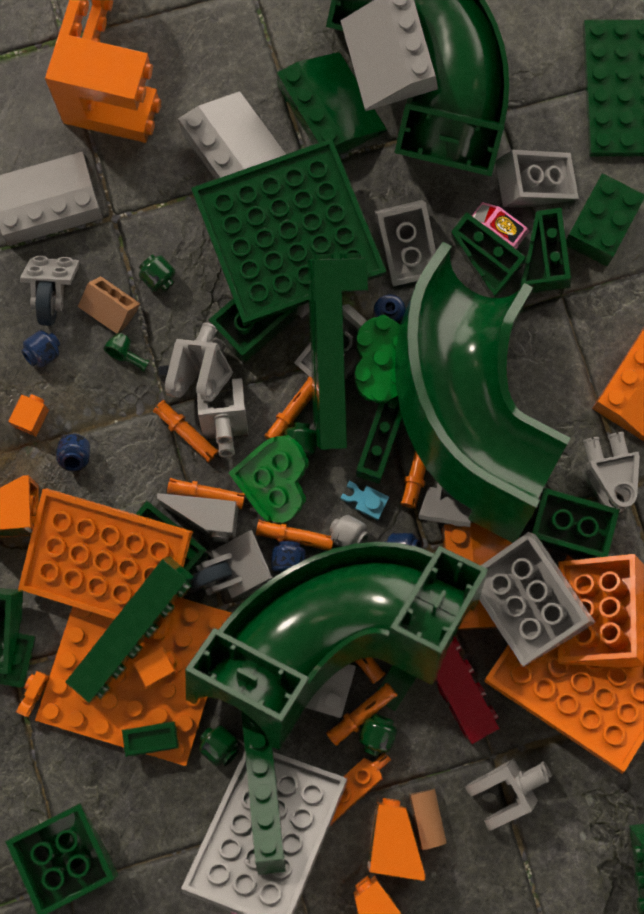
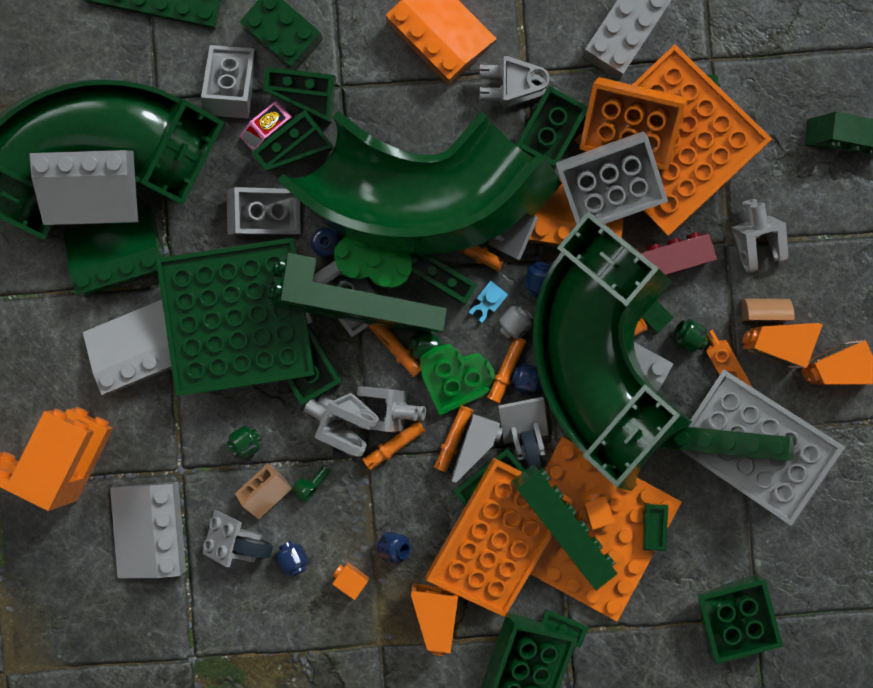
camera: 75 degrees left, 10 degrees up
(35, 686) = (589, 616): orange plate -> none
(219, 746) = (672, 470): dark green head -> none
(356, 718) = (675, 354): orange pin -> none

